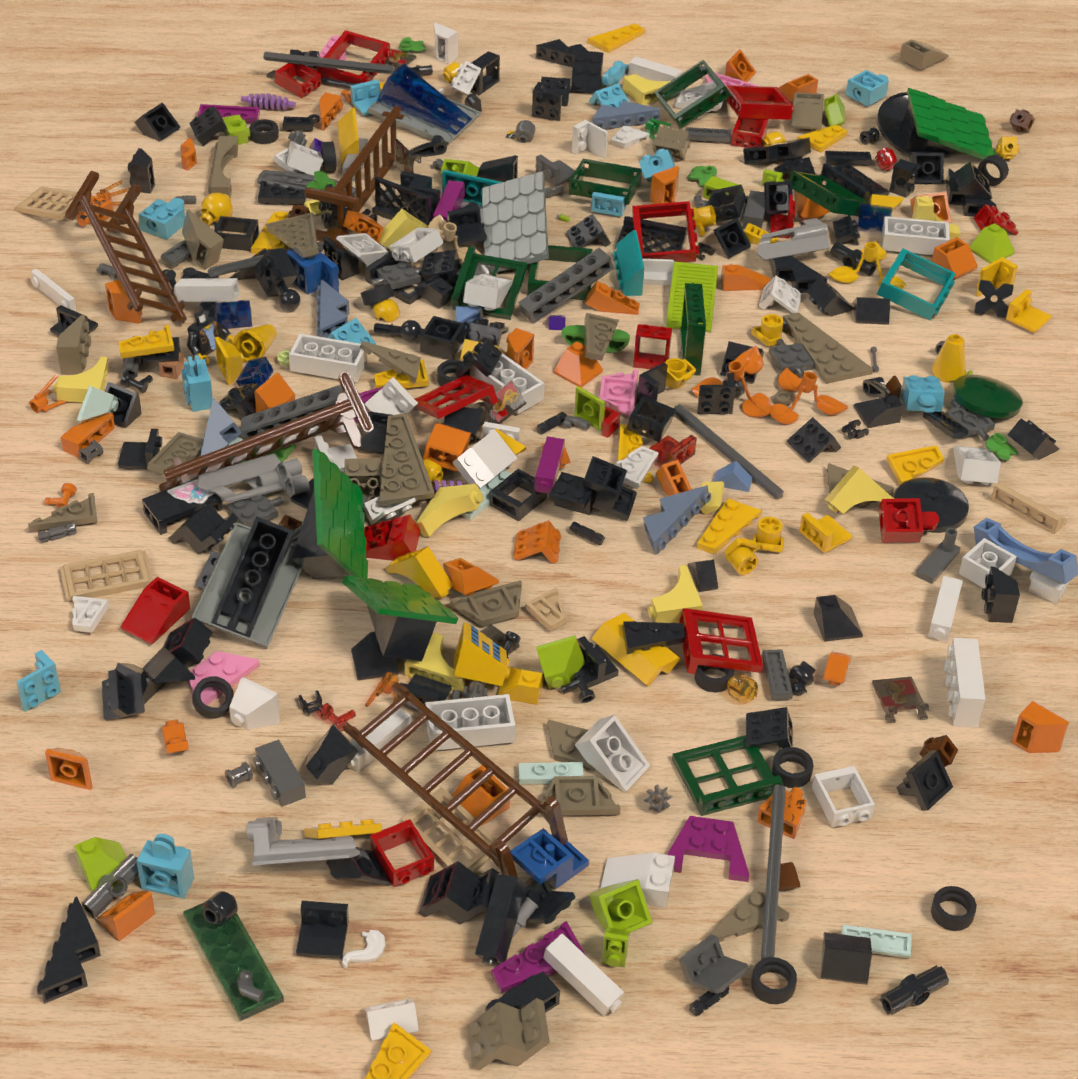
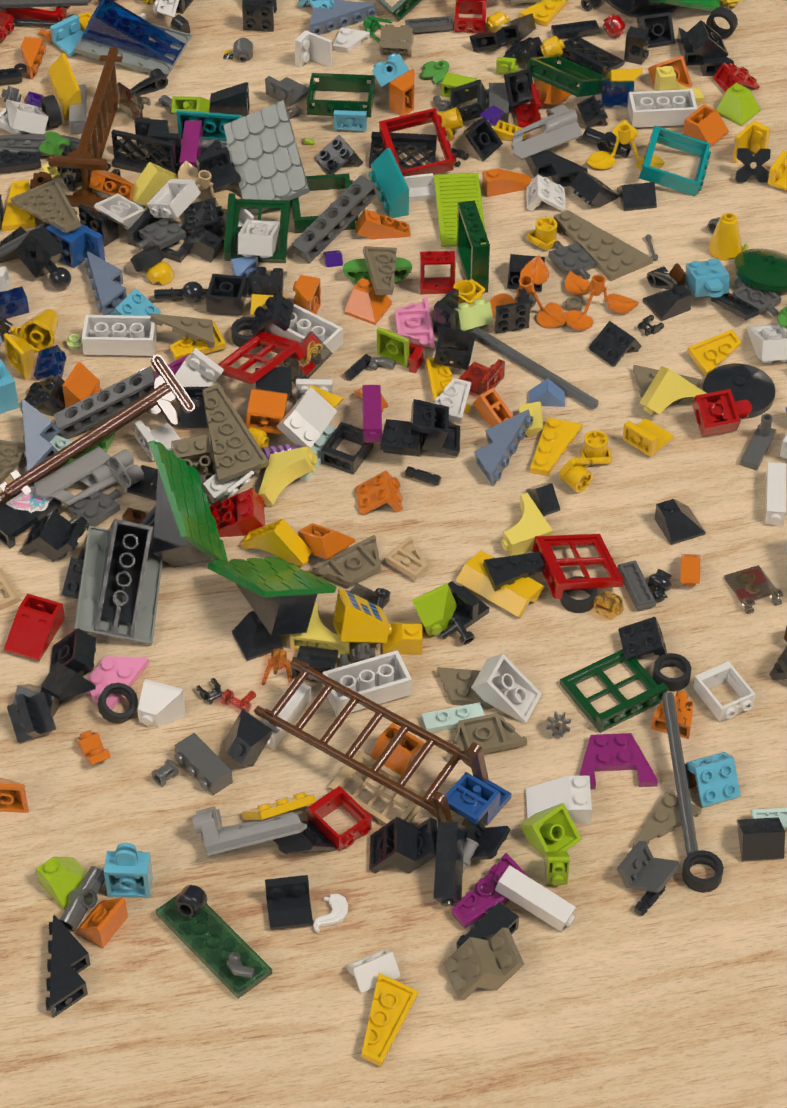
camera: 10 degrees left, 5 degrees up
(678, 392) = (474, 314): none -> yellowish green brick
(746, 217) = (492, 114): none -> dark purple slope
(811, 884) = (715, 778): none -> medium azure bracket
(821, 167) = (552, 46): none -> yellow head

